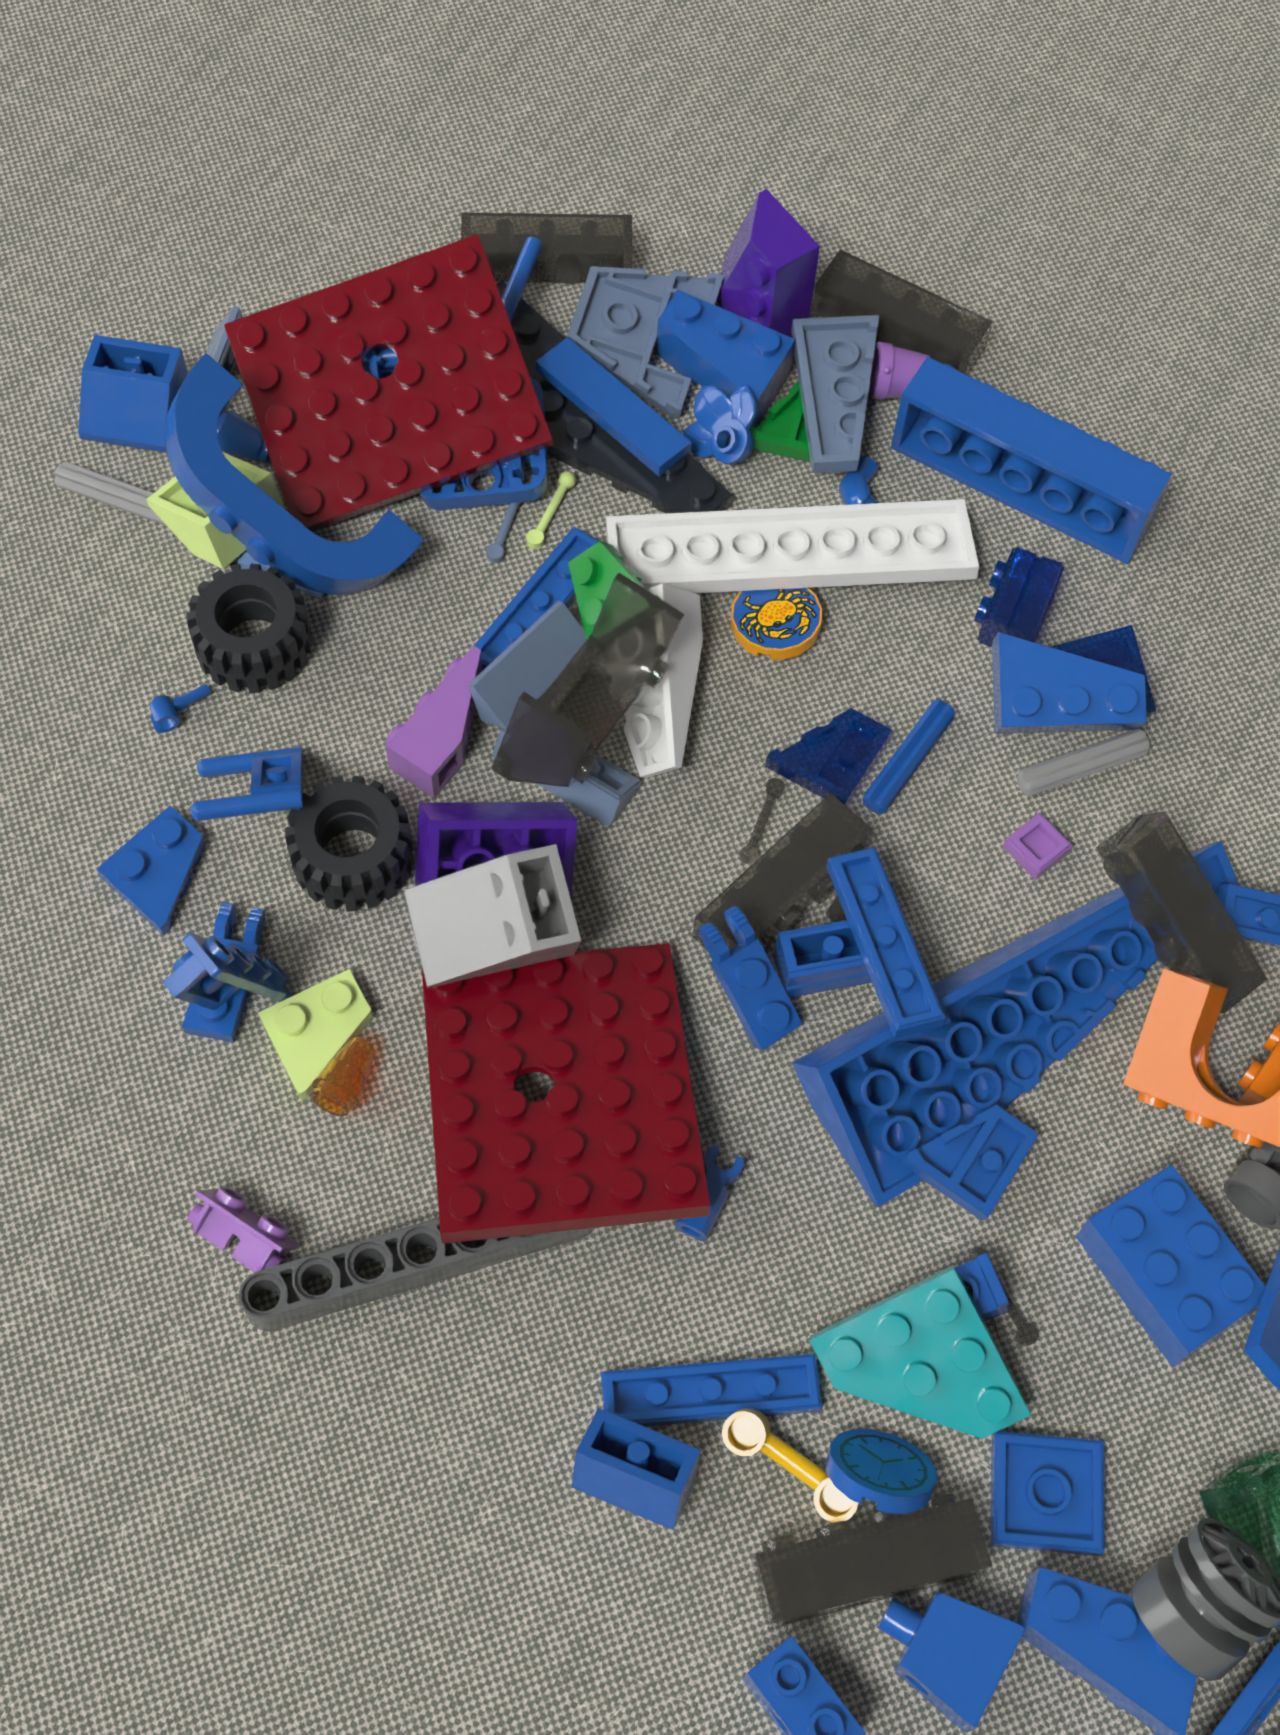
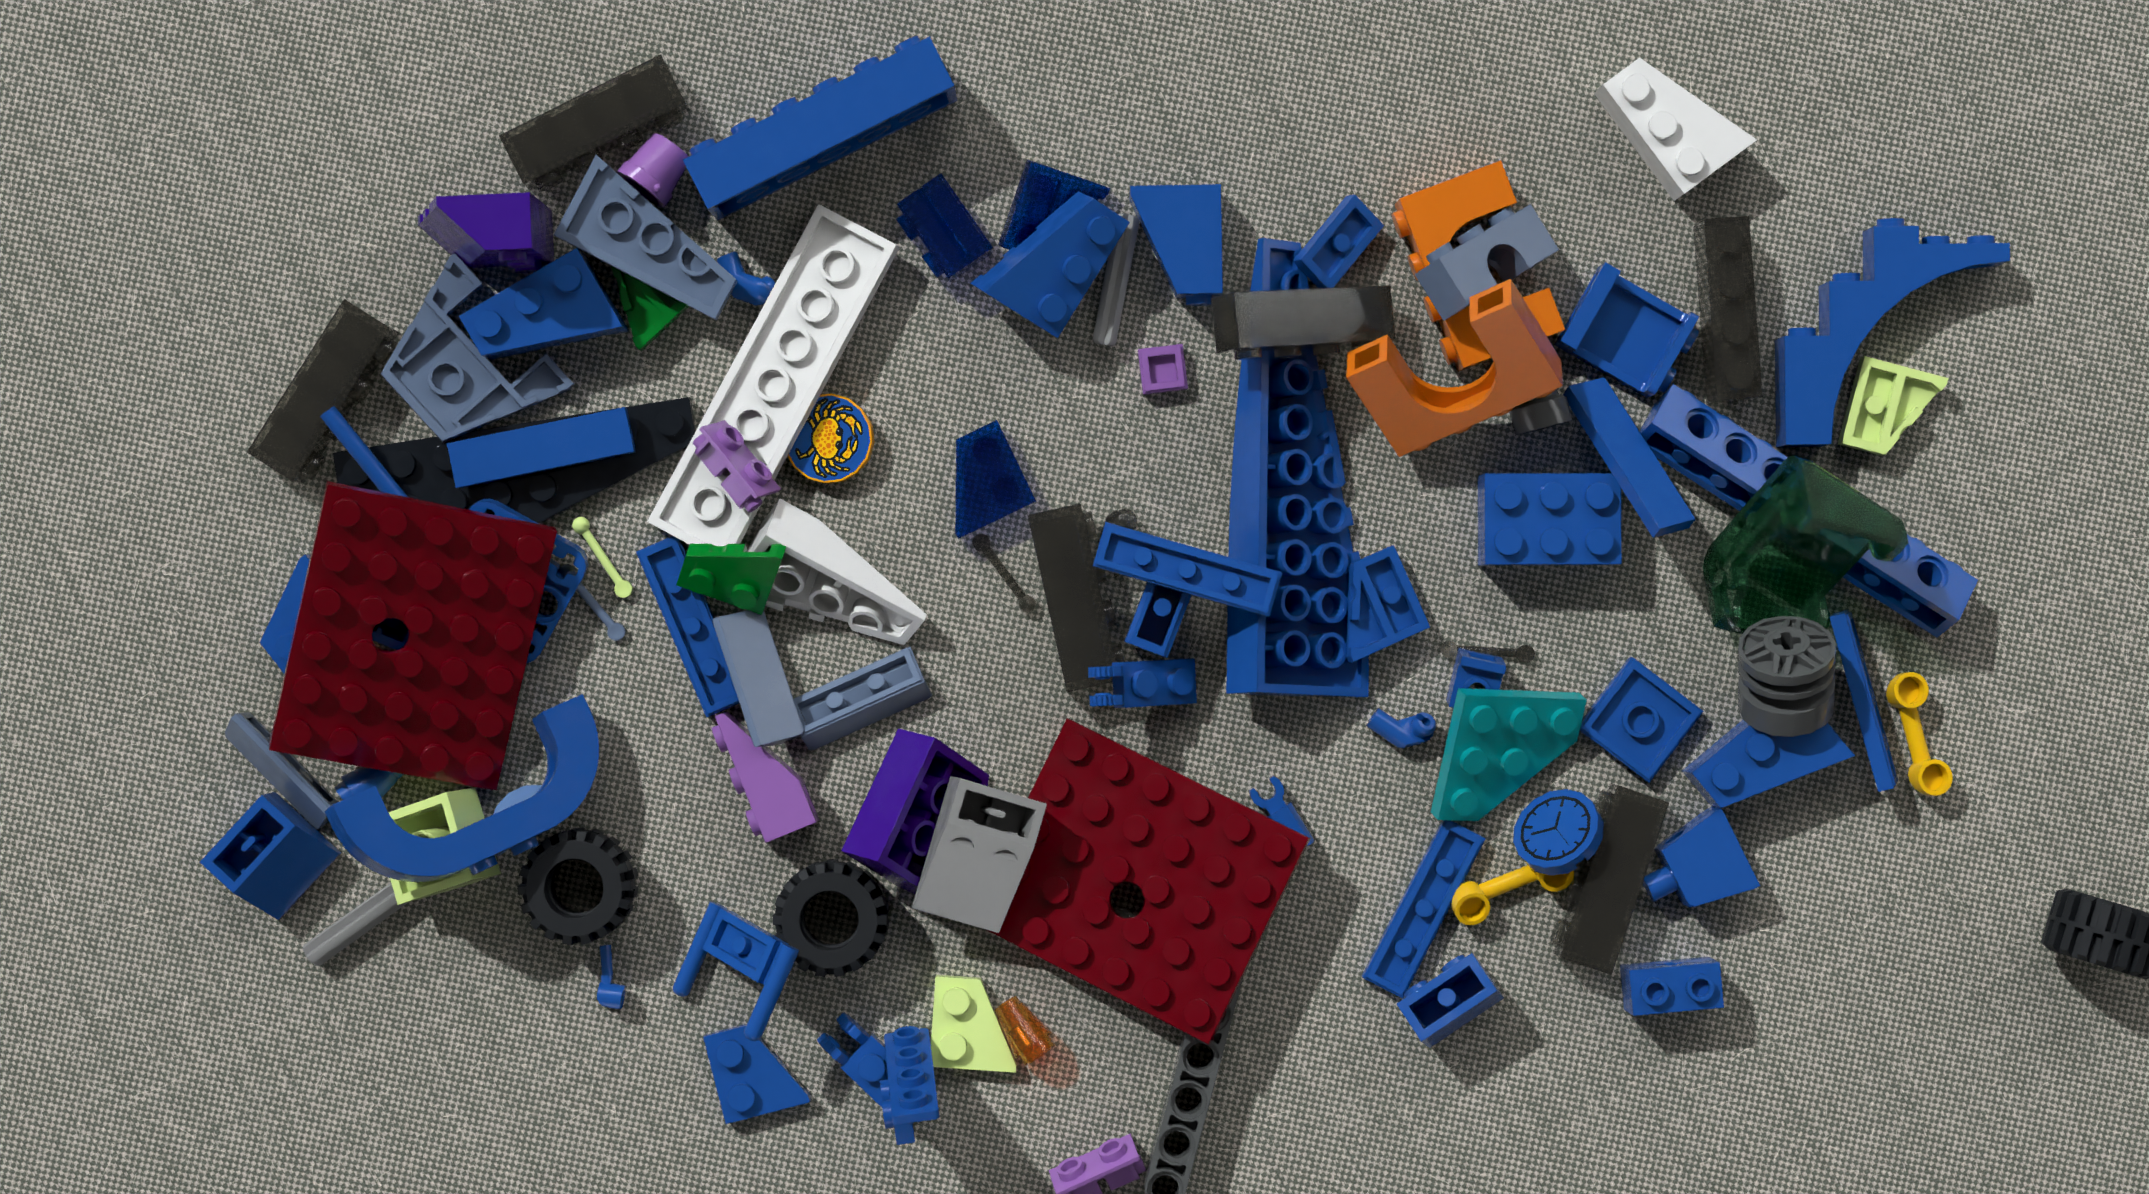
camera: 50 degrees left, 25 degrees up
(560, 733) = (833, 665): clear smoke windscreen -> none
(704, 543) = (724, 448): none -> medium lavender hinge
(721, 419) = (617, 363): blue plate -> none
(869, 1262) = (1403, 732): none -> blue arm
(908, 756) = (1022, 417): blue axle -> none
(1174, 778) = (1185, 236): none -> blue slope

